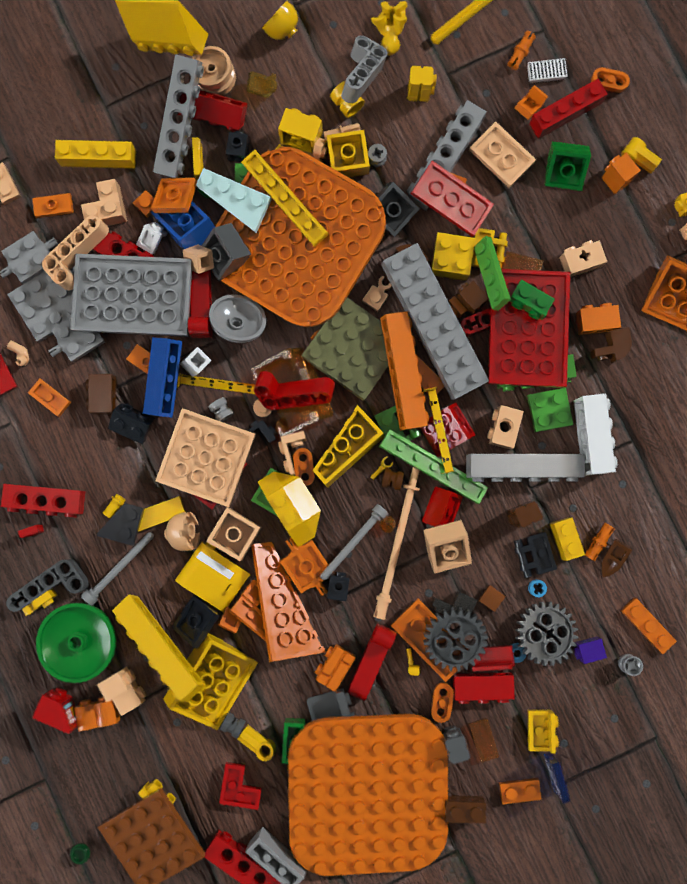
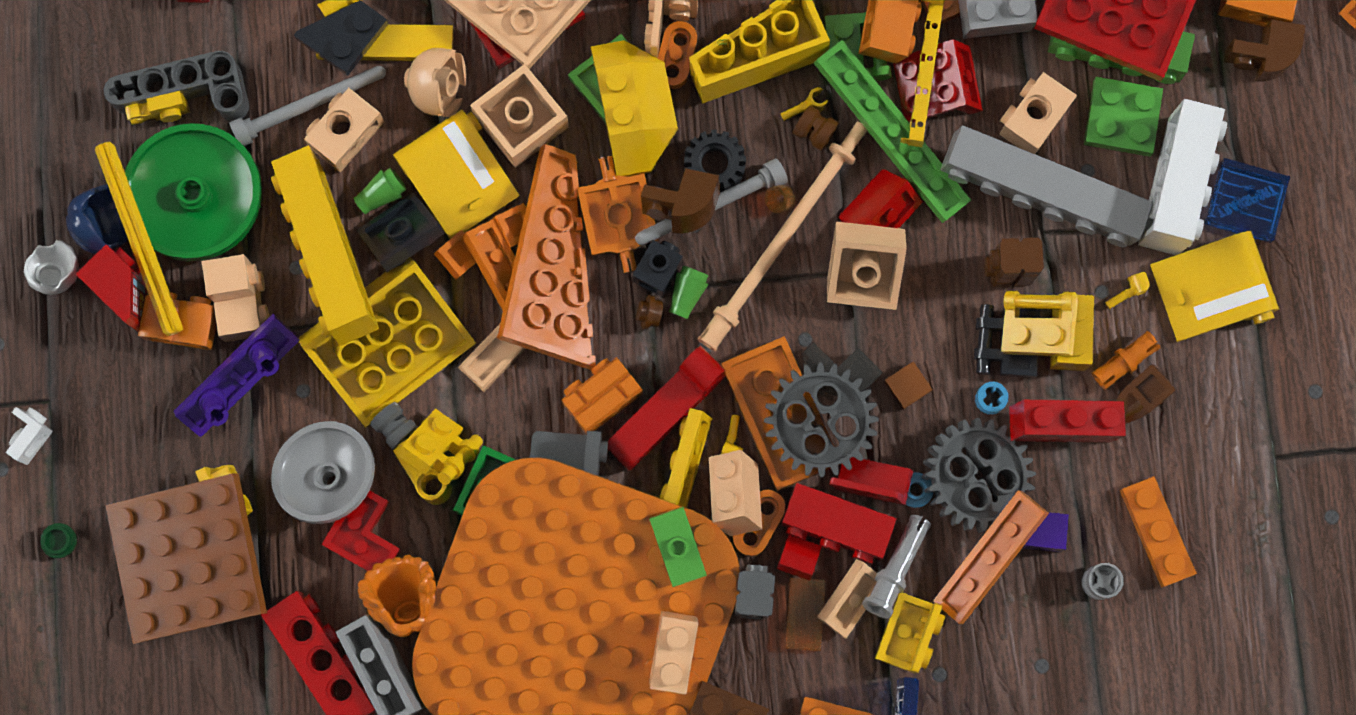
camera: 20 degrees right, 5 degrees down
(17, 711) = (51, 268): none -> white hair
(32, 678) = (95, 220): none -> dark blue piece
(43, 804) = (28, 441): none -> white bracket
(58, 681) = (138, 239): none -> yellow axle
(139, 731) = (236, 376): none -> dark purple plate
(151, 567) = (341, 149): none -> light nougat brick
(176, 600) = (380, 191): none -> bright green cone
(194, 767) = (310, 460): none -> light grey dish
(255, 729) = (430, 442): none -> yellow plate
(267, 671) = (489, 360): none -> light nougat tile
(270, 817) = (399, 594): none -> orange hair
(343, 612) = (649, 312): none -> reddish brown plate
(344, 550) = (687, 208): none -> reddish brown brick
(358, 518) = (723, 144): none -> black tyre
(358, 592) = (687, 291): none -> bright green cone
(391, 685) = (686, 459): none -> yellow plate
(407, 740) = (677, 546): none -> bright green plate
(425, 694) = (735, 493): none -> light nougat brick
(426, 796) = (673, 652): none -> light nougat brick
(470, 712) = (799, 557): none -> red tile
(505, 724) = (845, 604): none -> light nougat plate
(522, 708) = (891, 579): none -> light grey pin
(550, 550) = (1039, 335): none -> yellow plate
(569, 676) = (990, 557): none -> orange plate
(582, 588) = (1067, 421): none -> red brick
(591, 499) = (1138, 285): none -> yellow hand
(631, 430) = (1247, 200): none -> clear blue tile
(633, 483) = (1219, 286): none -> yellow door

